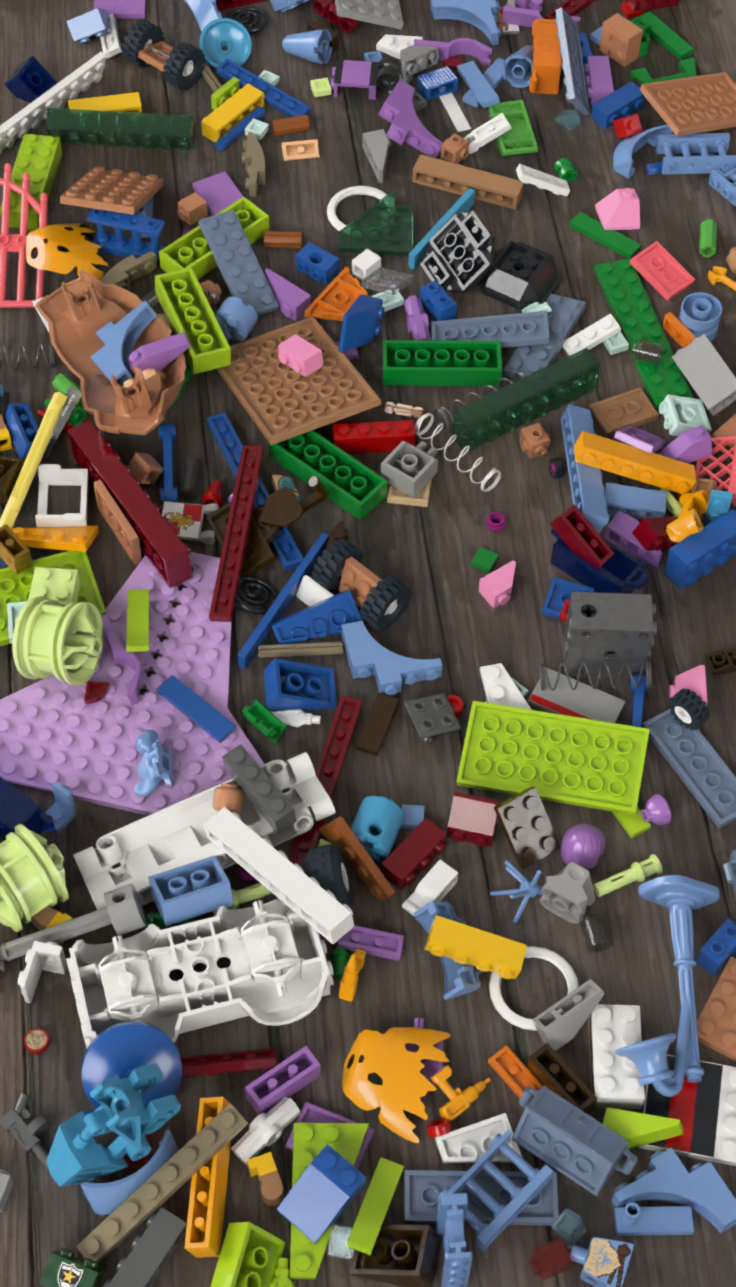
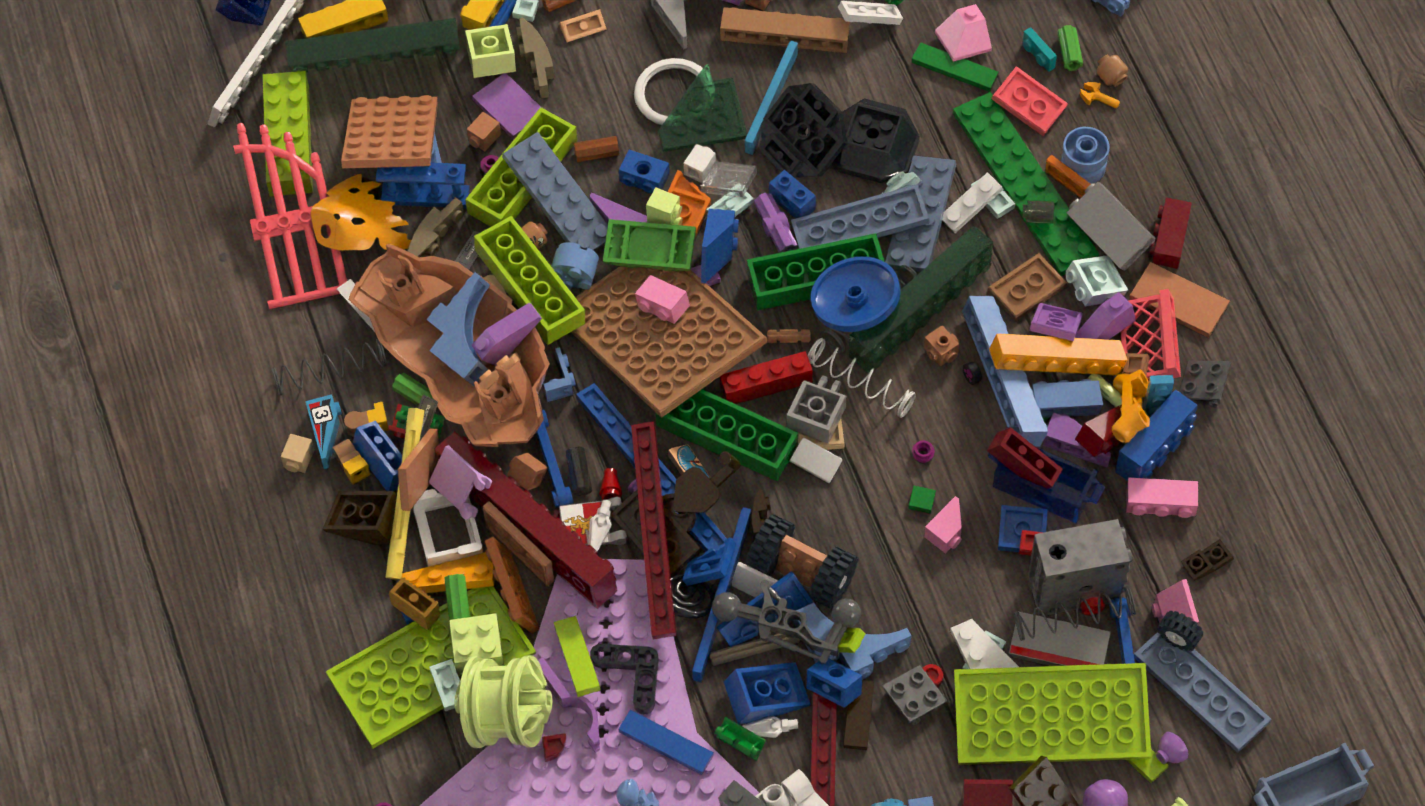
camera: 10 degrees left, 5 degrees up
(33, 401) = (355, 419): none -> leg
(47, 444) = (417, 470): none -> nougat tile
(49, 550) = (456, 596): none -> bright green axle
(77, 457) = (455, 479): none -> lavender flag
(101, 554) = (512, 585): none -> dark orange plate
(192, 643) = (642, 669): none -> black beam
(193, 523) = (599, 525): none -> white piece
(195, 410) = (562, 387): none -> medium blue bracket
(216, 151) = (490, 51): none -> yellowish green brick
(280, 572) = (710, 565): none -> blue wing
(302, 314) = (649, 245): none -> bright green slope
(322, 290) = (664, 208): none -> yellowish green brick
(361, 689) = (834, 682): none -> blue brick
(384, 656) = (851, 640): none -> lime plate
(385, 631) = (845, 614): none -> dark grey piece
(399, 509) = (816, 460): none -> white slope
(468, 380) = (855, 294): none -> blue dish
(614, 674) = (1093, 603): none -> red tile
(681, 234) = (1041, 51): none -> teal plate
(700, 599) = (1161, 497): none -> bright pink brick

